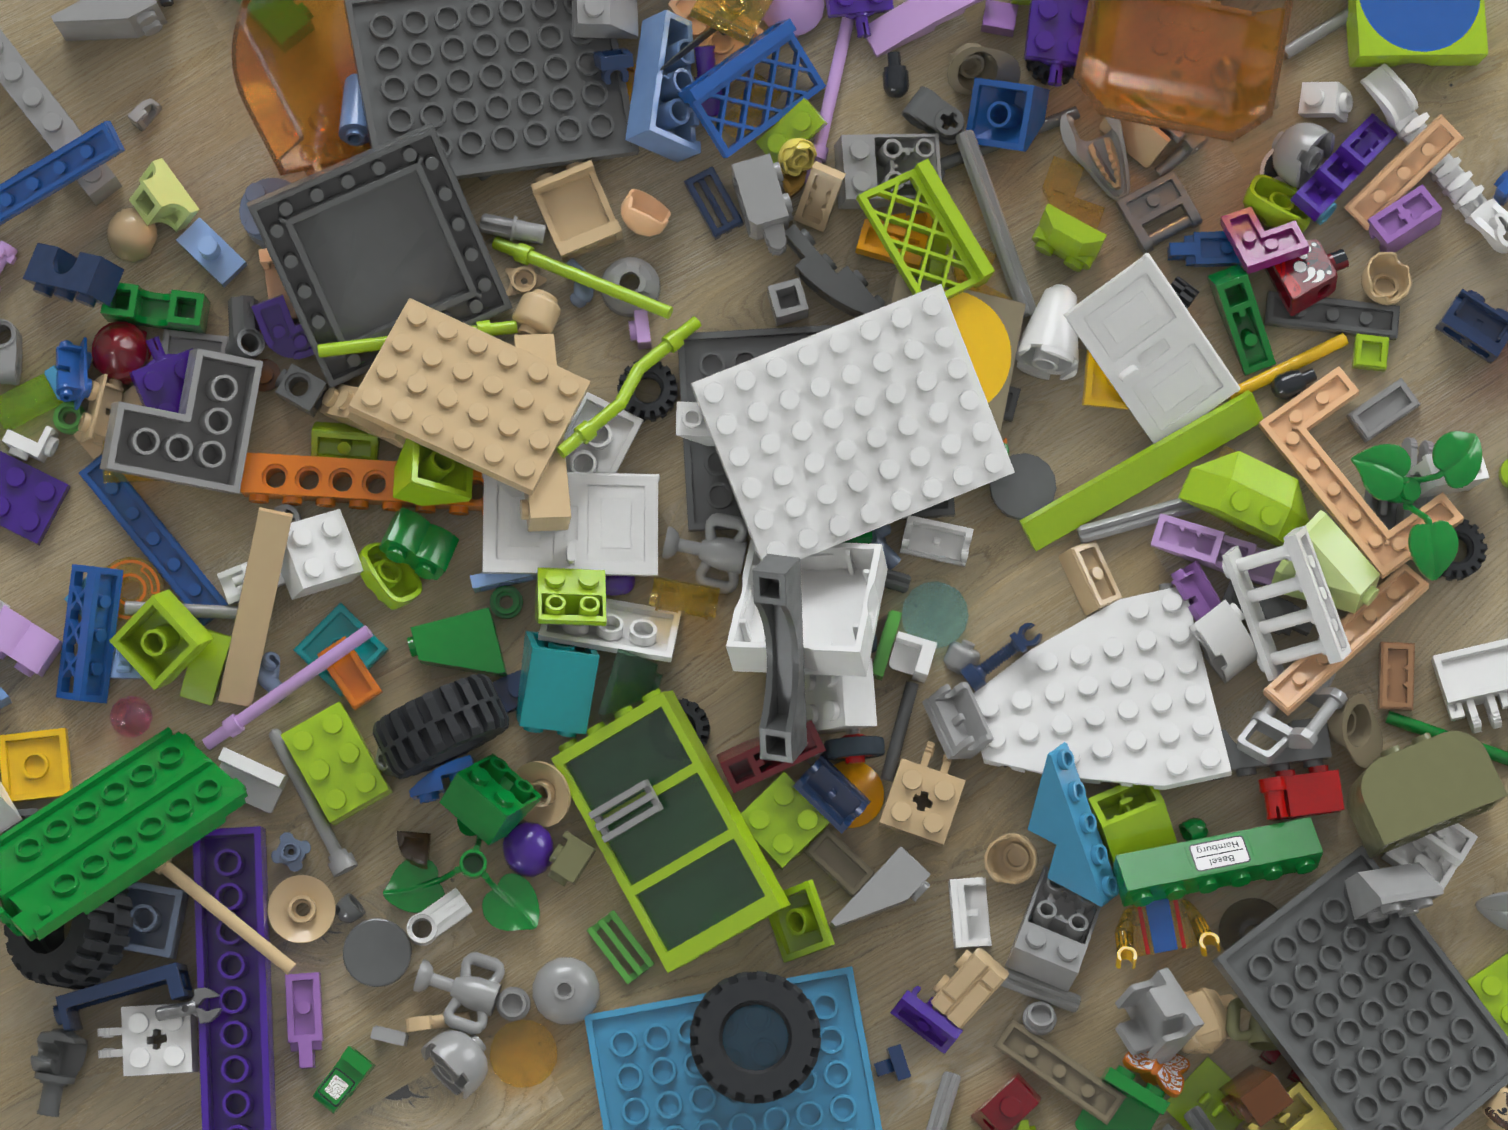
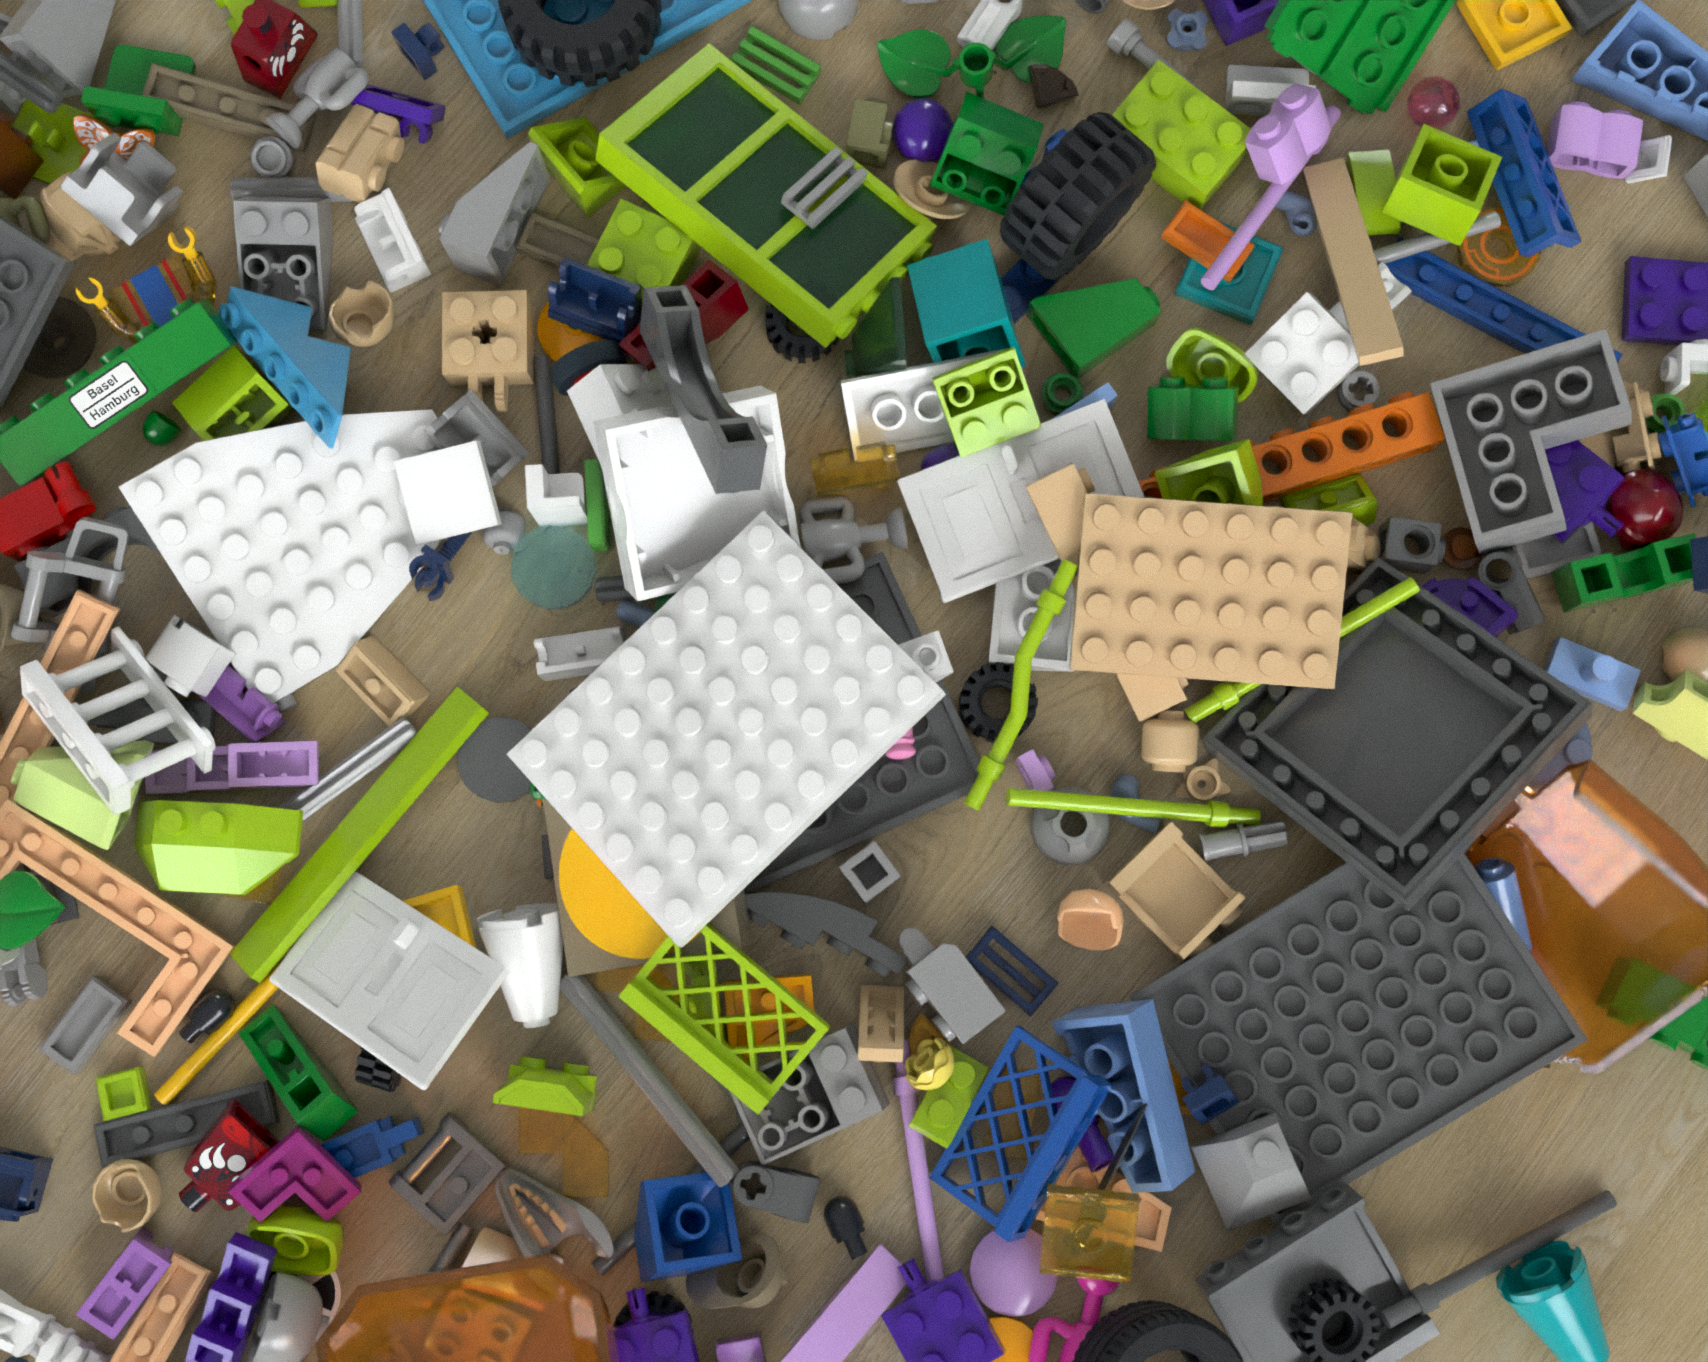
camera: 160 degrees right, 0 degrees up
(252, 727) = (1288, 134): none -> lavender brick
(977, 1052) = (326, 84): none -> light grey piece
(992, 686) = (447, 492): none -> white tile

